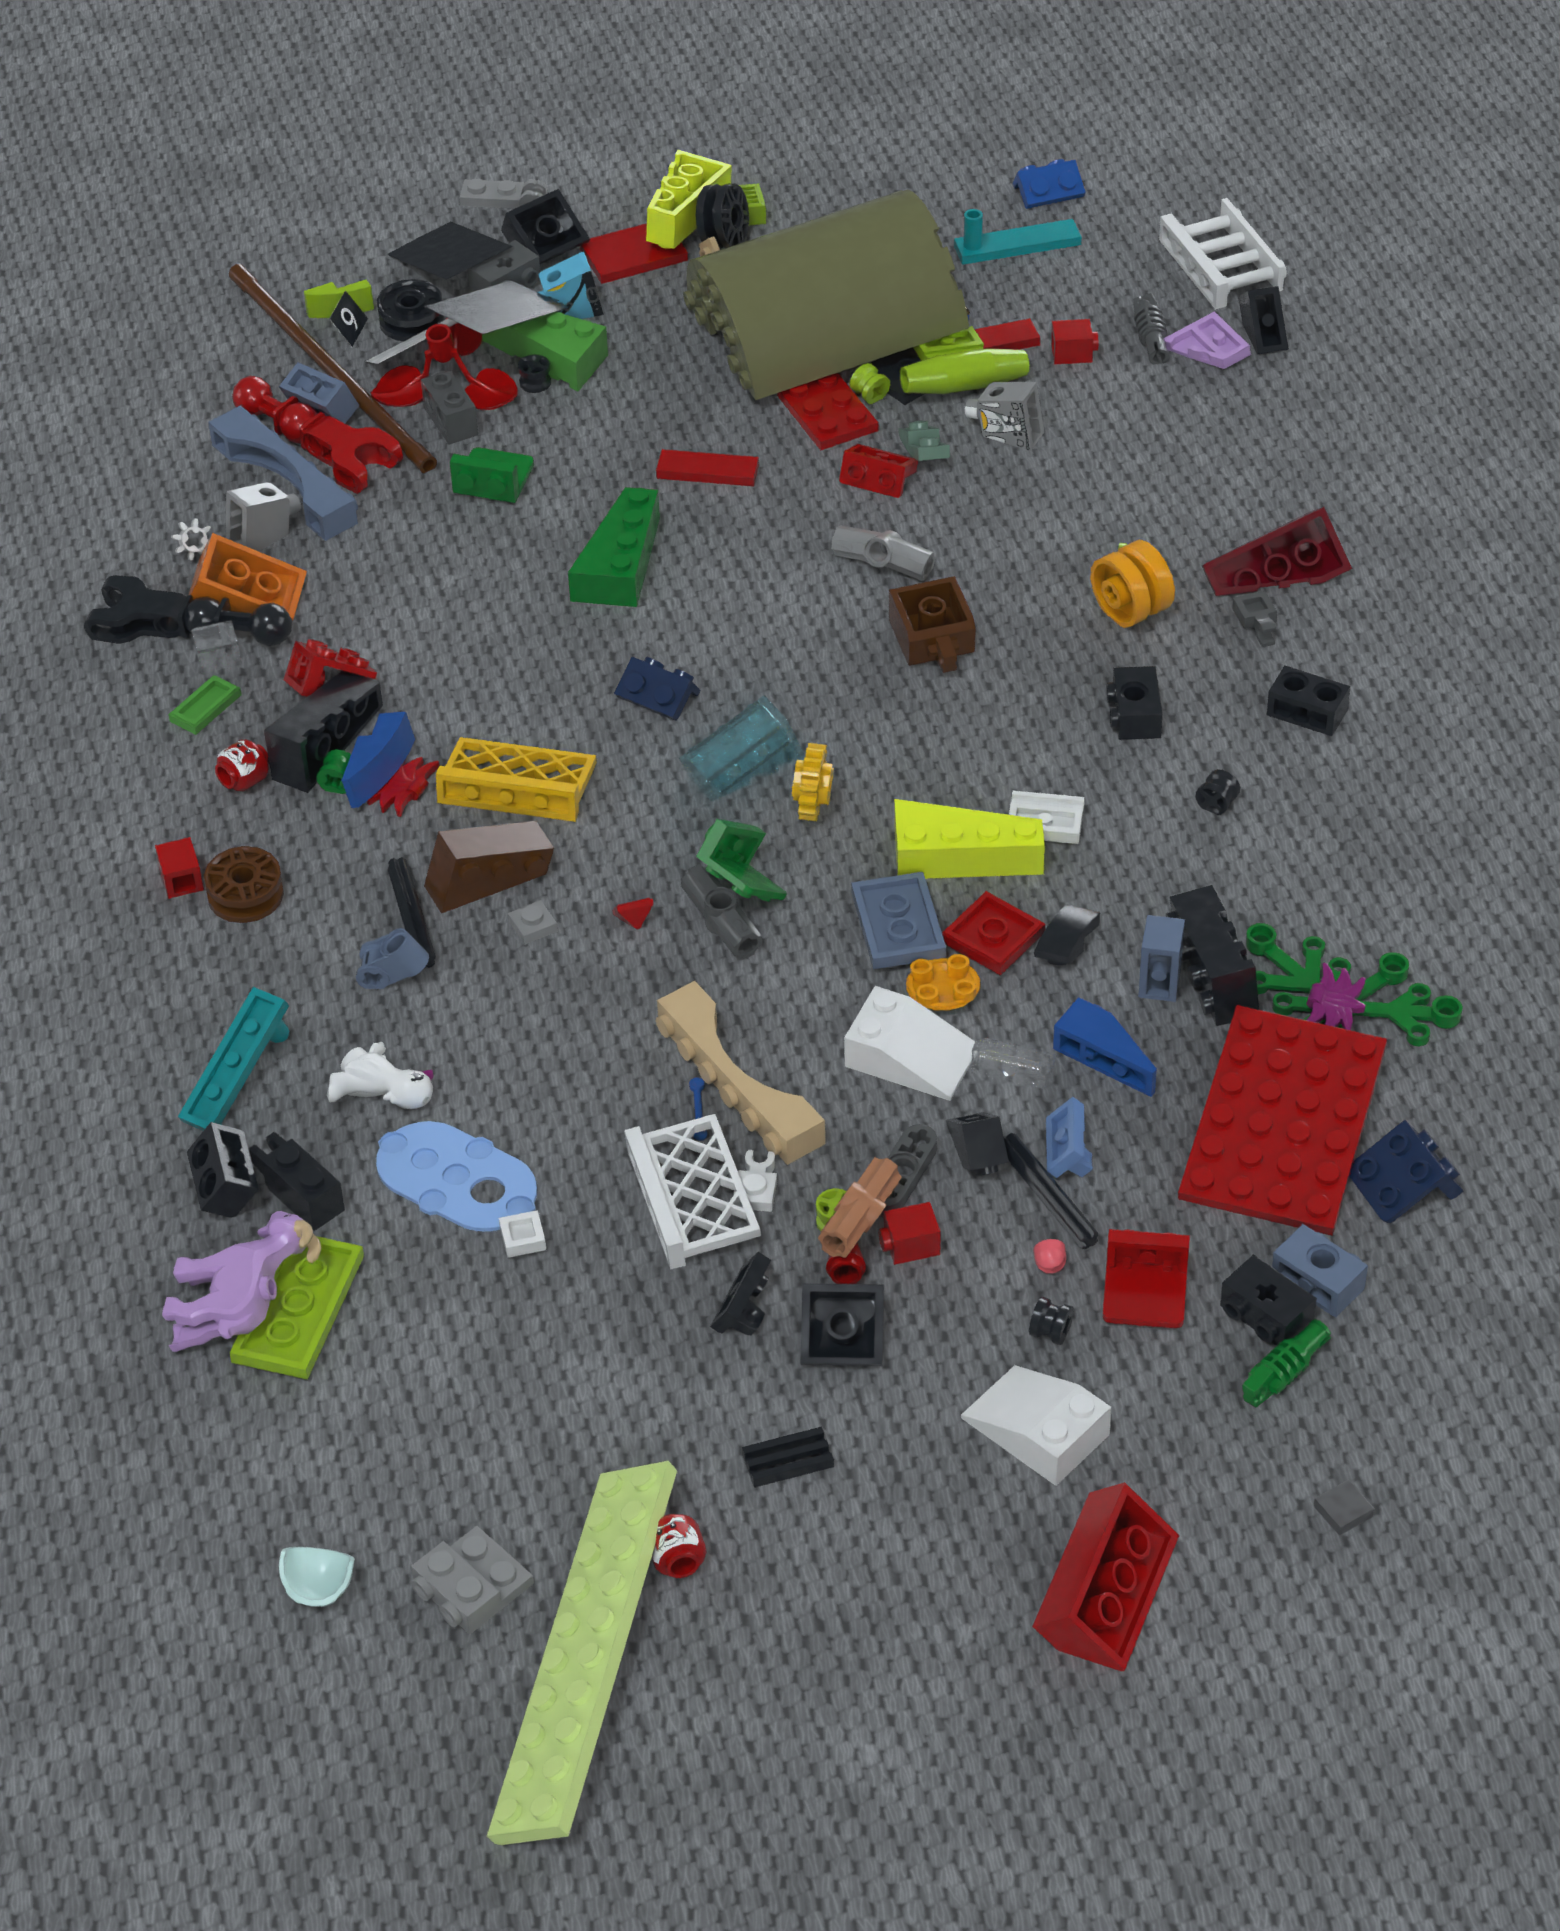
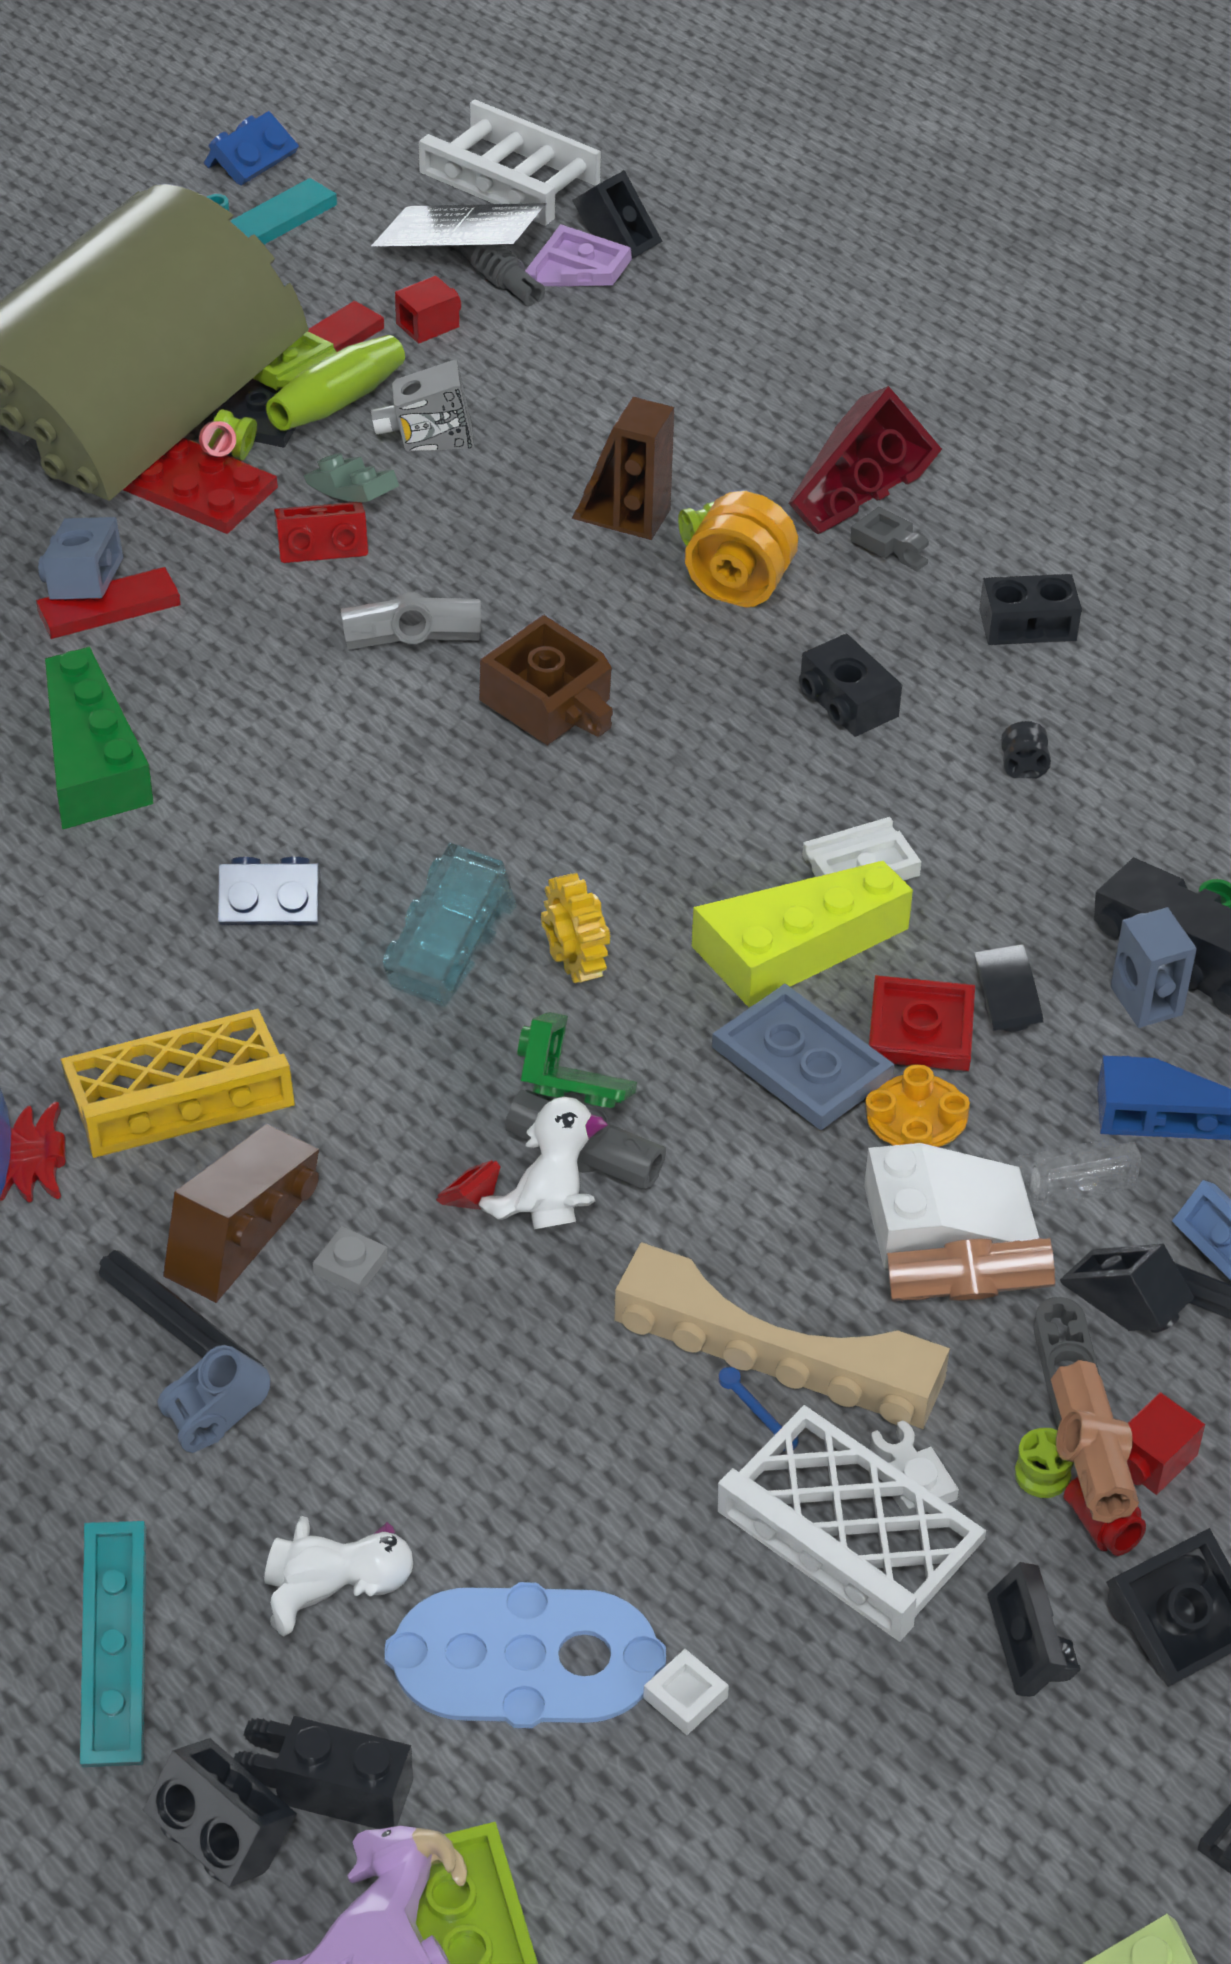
camera: 35 degrees left, 0 degrees up
(675, 925) = (552, 1182): none -> white animal
(705, 431) = (81, 558): none -> sand blue brick
(845, 375) = (225, 442): none -> coral hinge
(885, 1086) = (971, 1269): none -> nougat piece
(1099, 503) = (633, 472): none -> reddish brown wedge
(1143, 288) = (459, 225): none -> sticker

